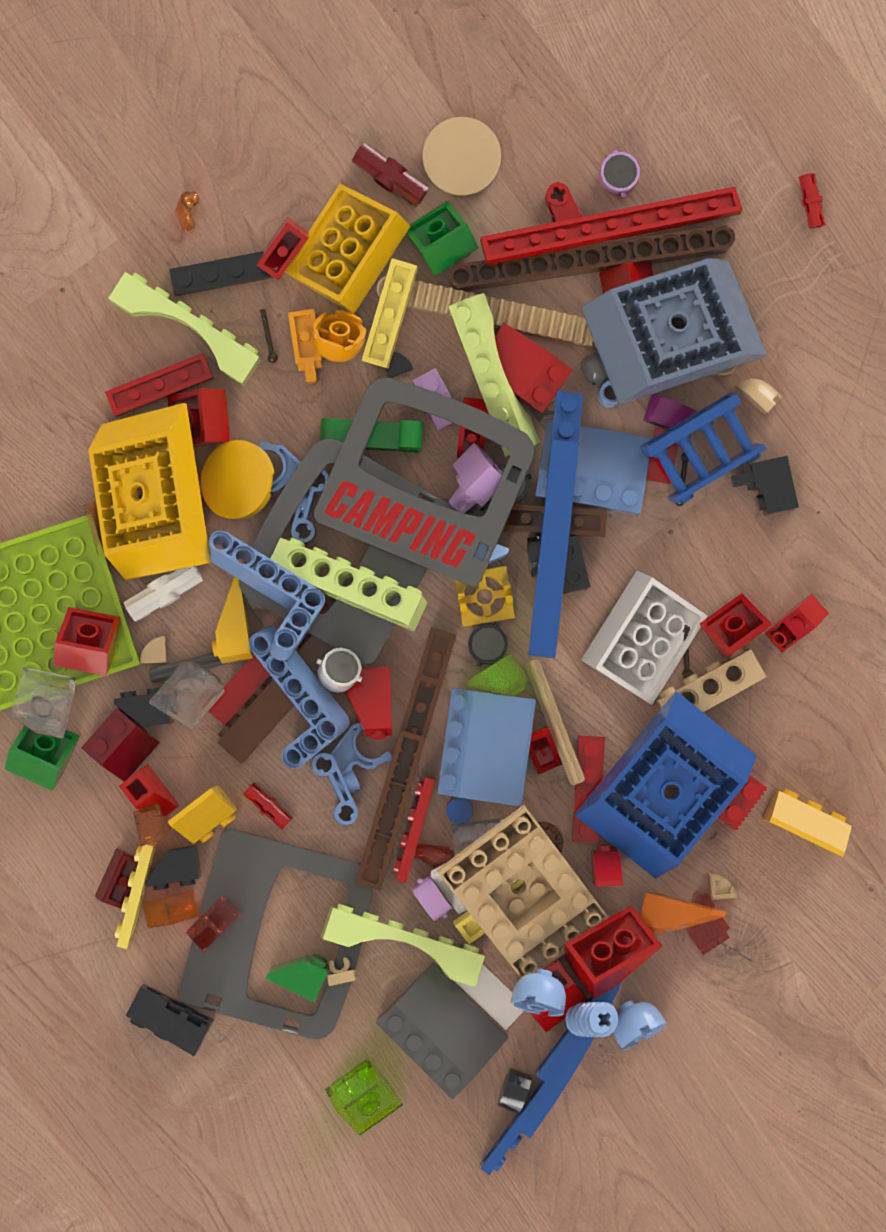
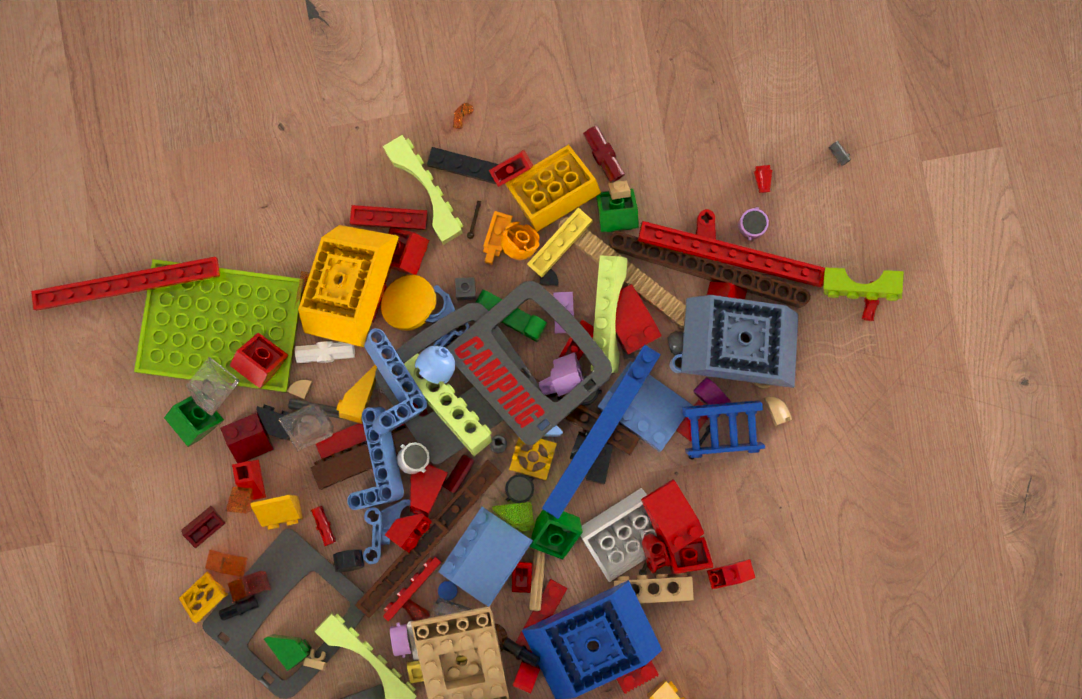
camera: 25 degrees right, 5 degrees down
(132, 904) = (202, 547): light yellow plate -> none
(149, 963) = (192, 593): none -> yellow piece
(169, 1019) = (188, 637): black wedge -> none
(177, 865) = (243, 536): black slope -> none
(214, 956) = (238, 608): none -> black axle
(299, 428) = (465, 288): none -> dark grey brick
(311, 540) = (436, 364): none -> light blue cylinder
(320, 833) = (348, 560): none -> black piece
(376, 761) = (408, 530): none -> red slope
(403, 661) = (459, 473): none -> dark red slope
(431, 211) = (619, 189): none -> tan plate
(432, 608) = (498, 449): none -> dark grey pin
(461, 156) = (656, 164): tan tile -> none
(559, 679) = (555, 535): none -> green slope
(586, 842) = (520, 652): none -> black axle
(604, 109) = (763, 177): none -> red cone
(685, 32) = (840, 154): none -> dark grey pin
(692, 588) = (672, 517): none -> red slope
(692, 642) = (655, 555): none -> red piece
(773, 482) = (759, 473): black hinge -> none
(824, 173) = (887, 286): none -> lime arch

